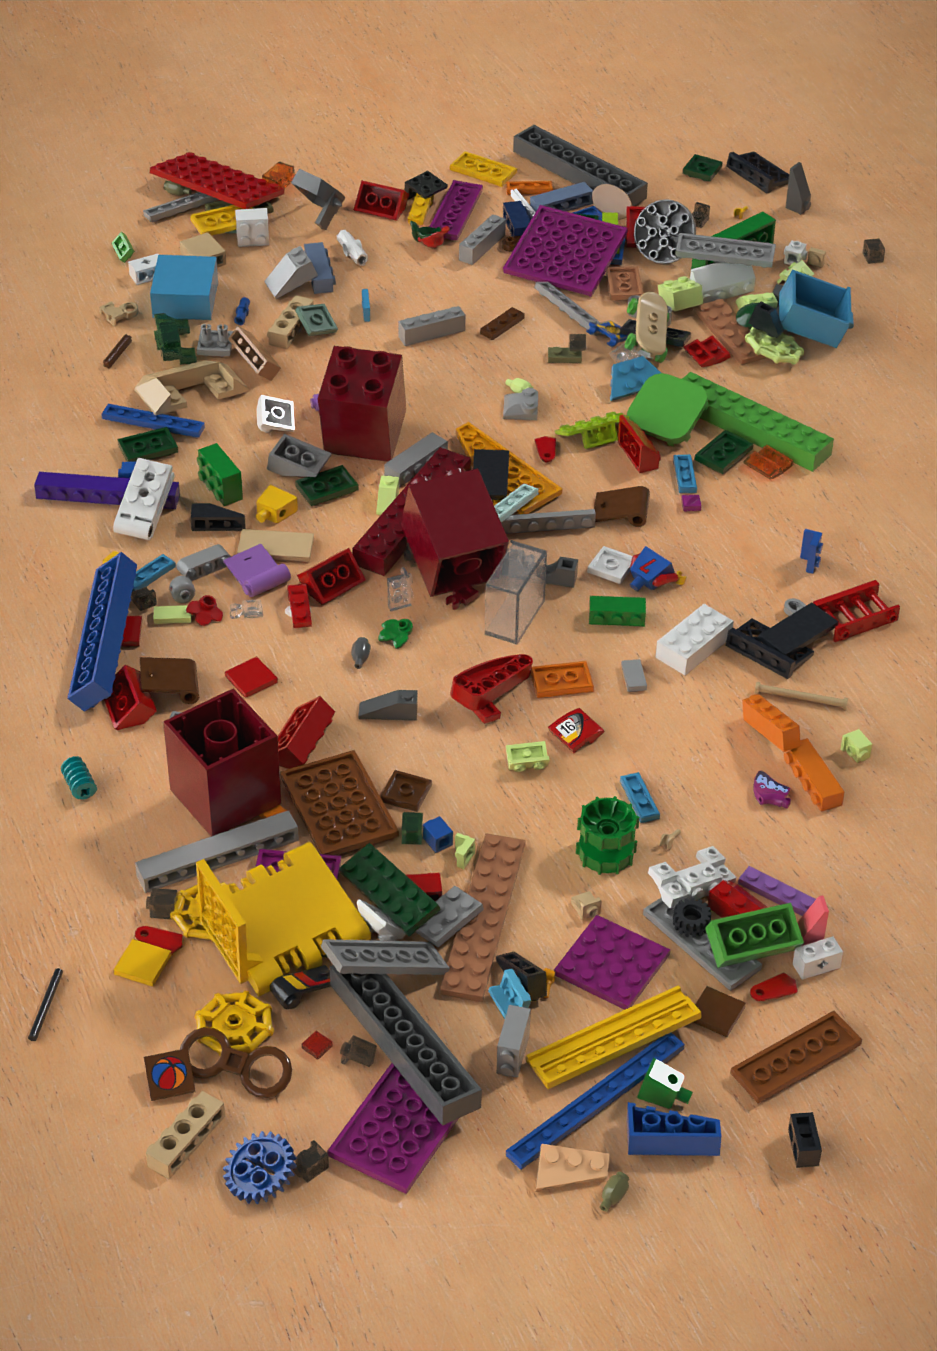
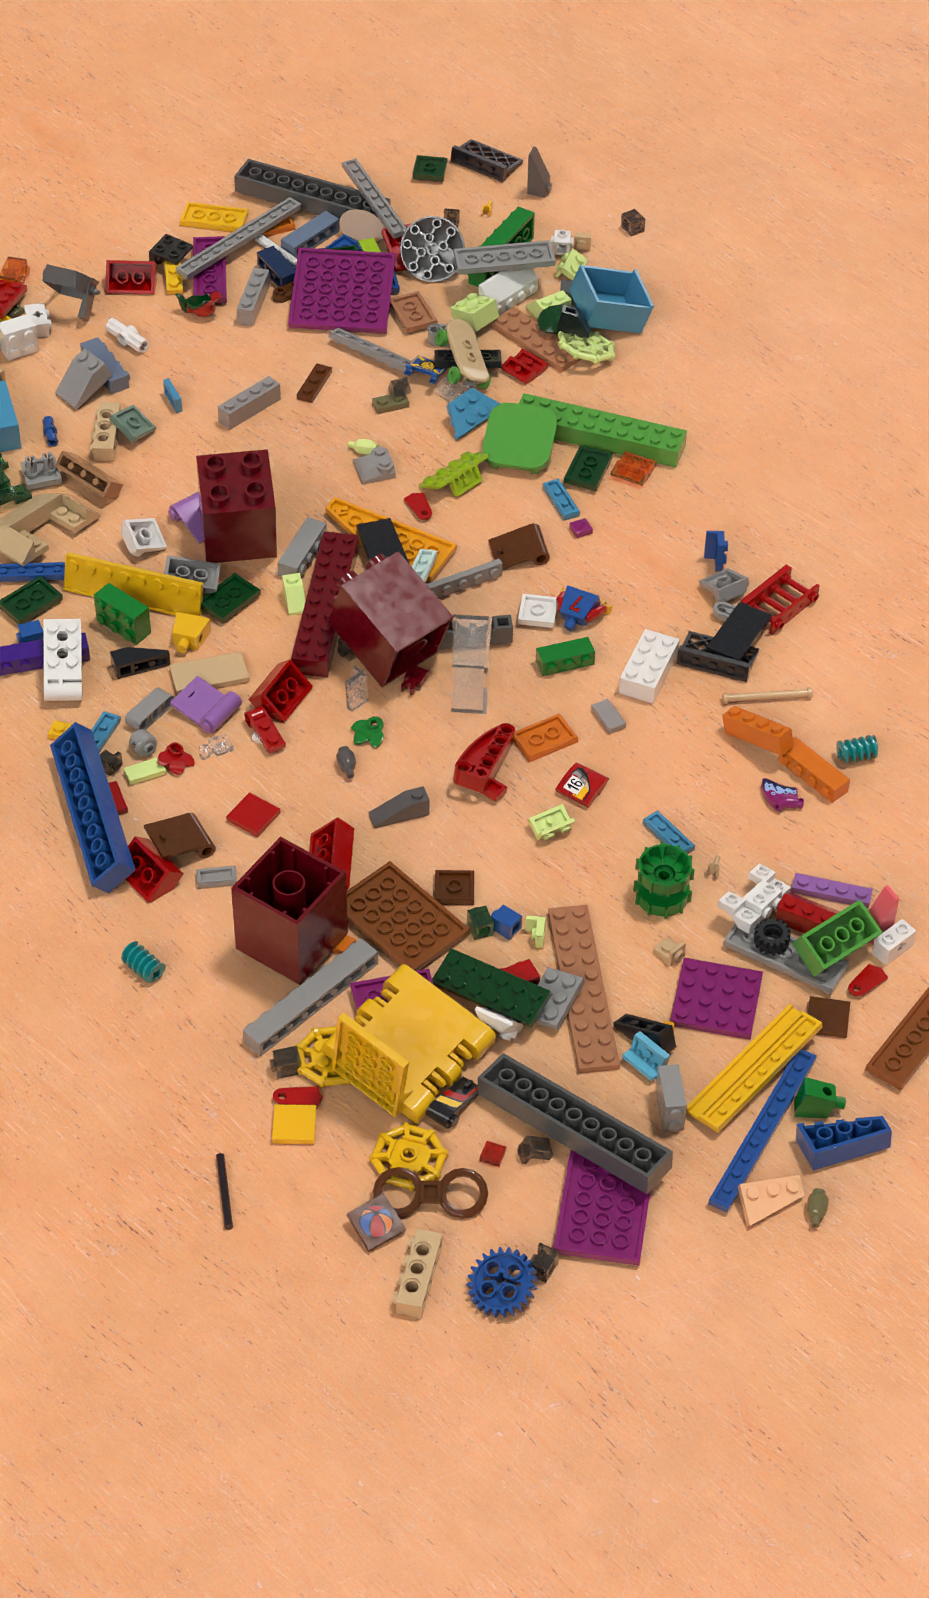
camera: 20 degrees left, 5 degrees up
(249, 455) = (154, 589): none -> yellow plate
(279, 218) = (40, 318): none -> white brick
(384, 957) = (523, 1054): light grey plate -> none
(492, 188) = (238, 238): none -> light grey plate
(632, 177) = (374, 198): none -> light grey tile
(637, 446) = (506, 483): red slope -> none
(807, 585) = (725, 585): none -> light grey slope
(856, 745) = (838, 730): yellowish green brick -> none
(868, 766) = (859, 747): none -> teal piece

